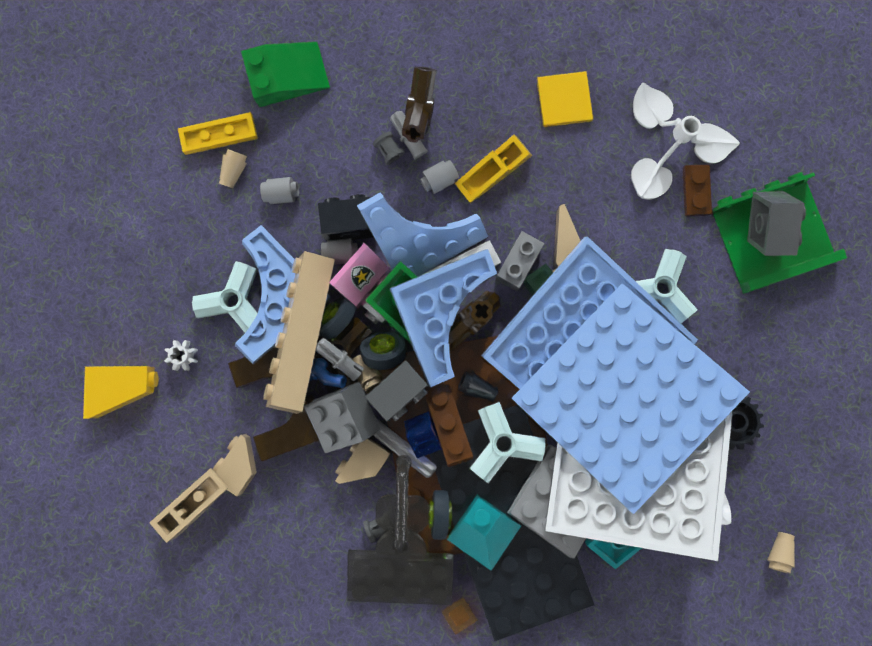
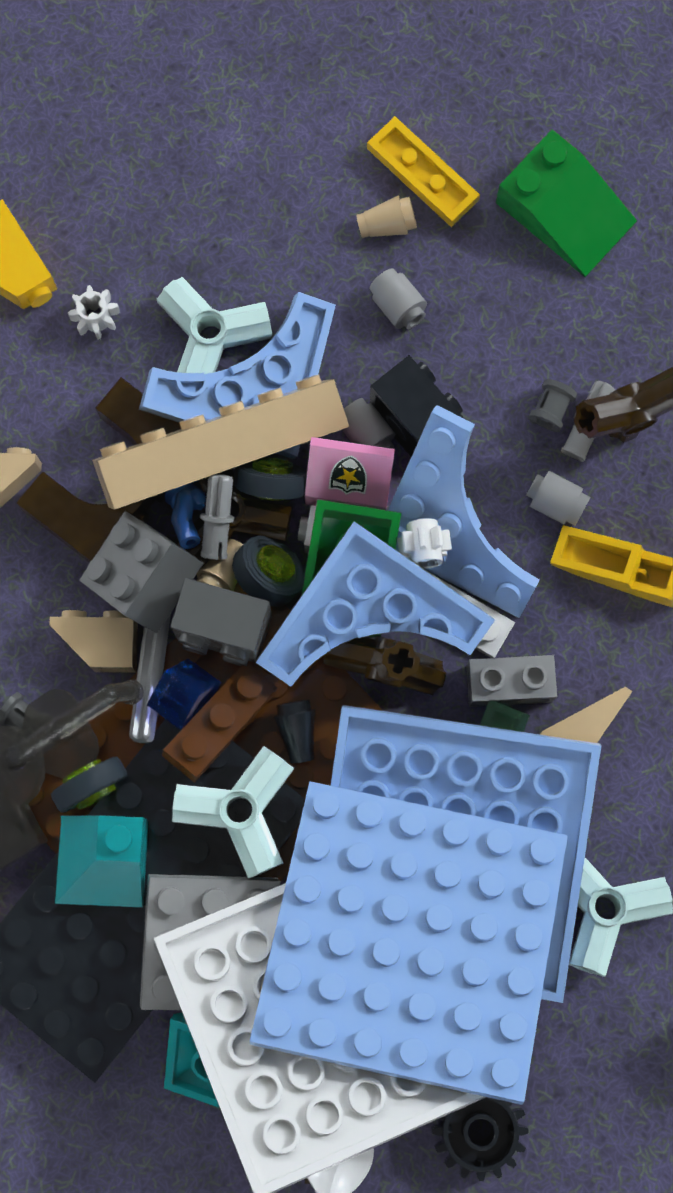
camera: 55 degrees right, 5 degrees down
(423, 259) = (424, 543): none -> white gear

